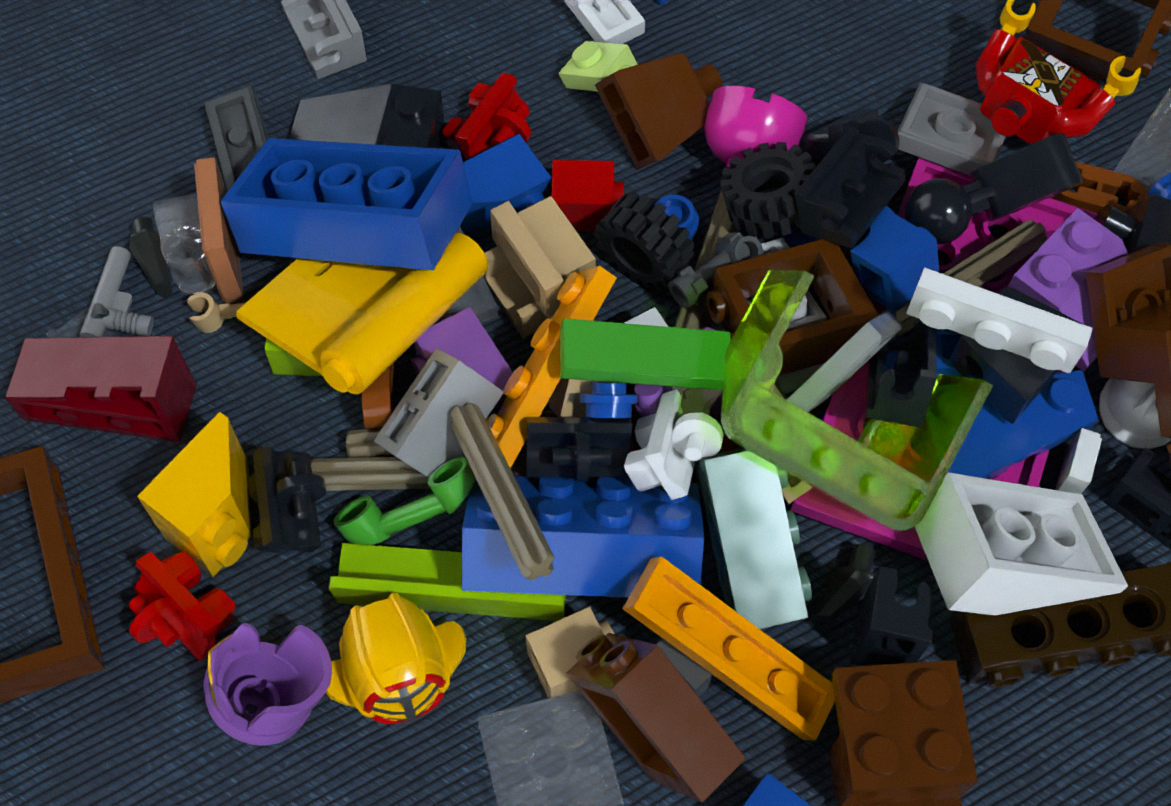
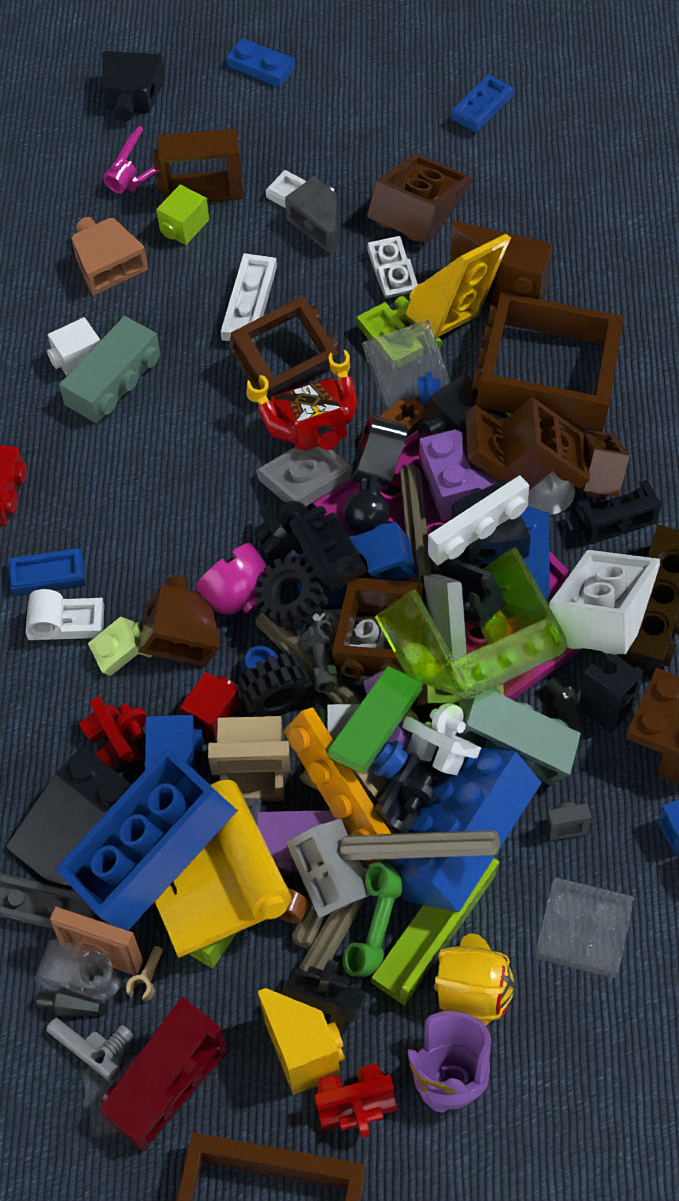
camera: 55 degrees left, 5 degrees down
(557, 645) = (525, 878): tan brick -> none
(655, 714) = (600, 843): reddish brown window -> none
(731, 648) = (579, 782): light orange plate -> none
(1079, 462) = (565, 542): white tile -> none

